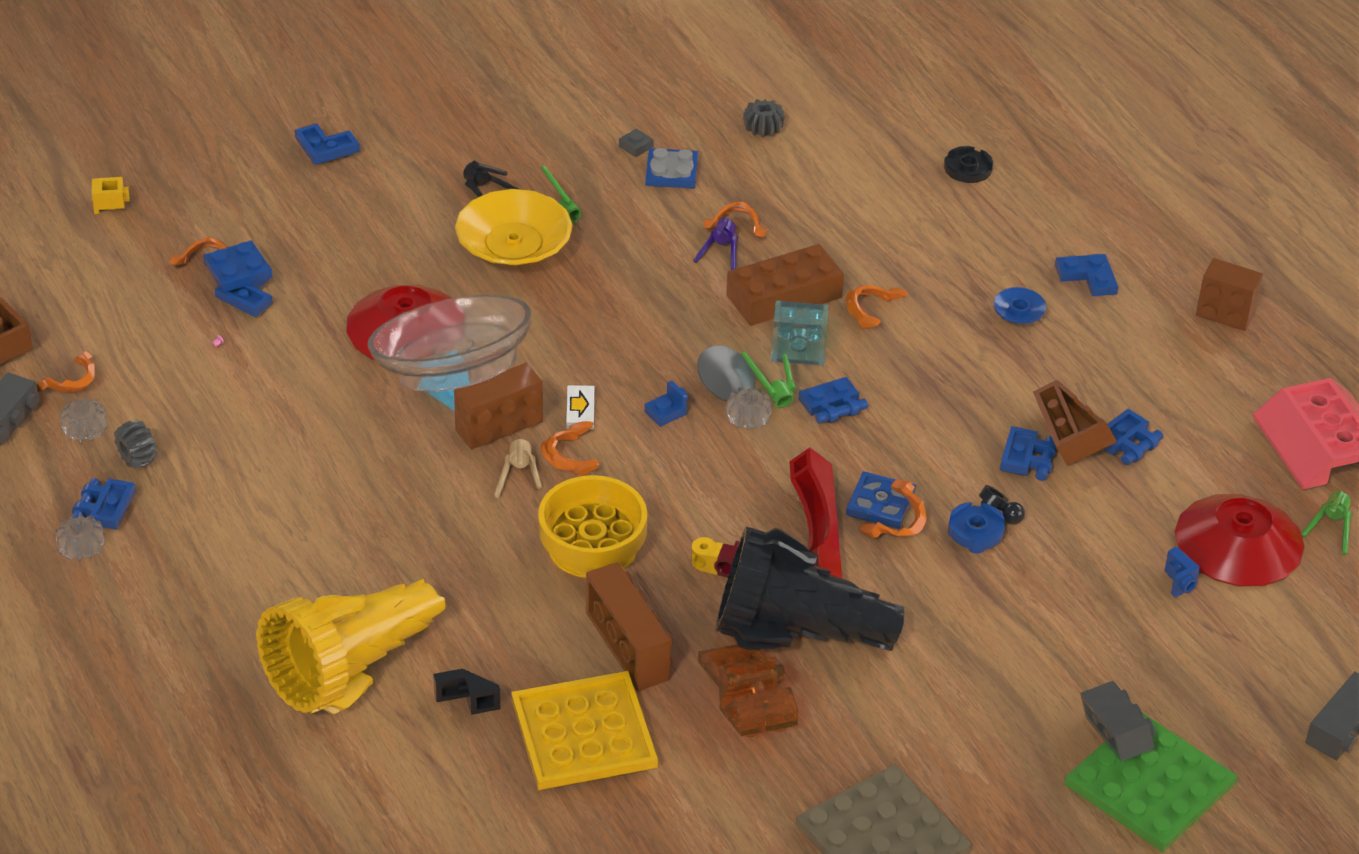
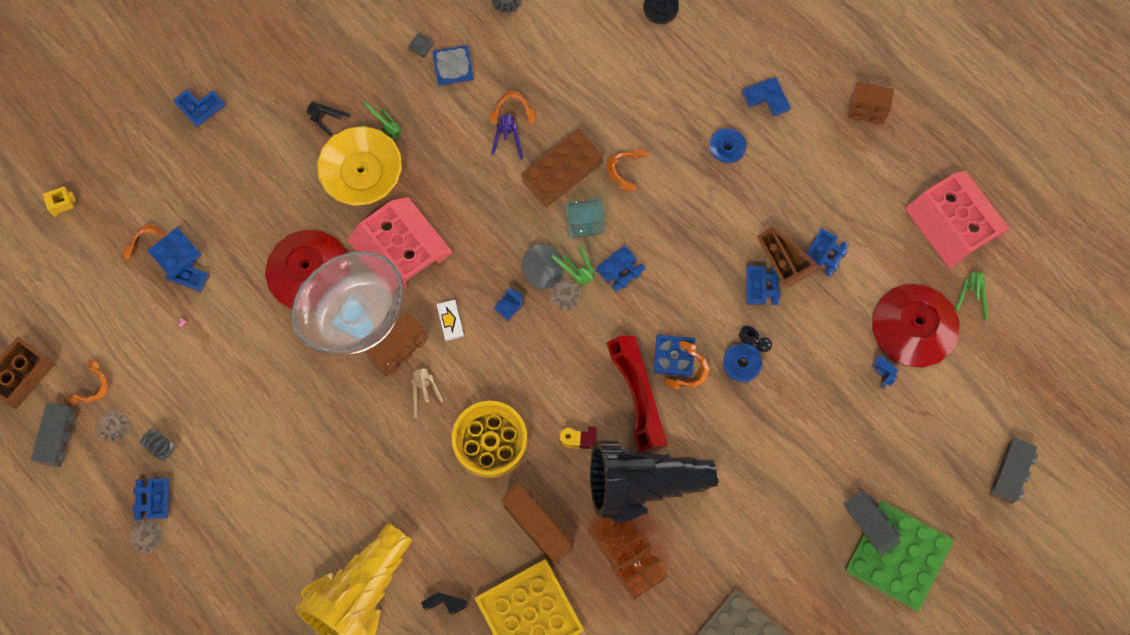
camera: 10 degrees left, 30 degrees up
(551, 299) = (408, 233): none -> coral slope
(559, 461) = (439, 366): orange helmet -> none

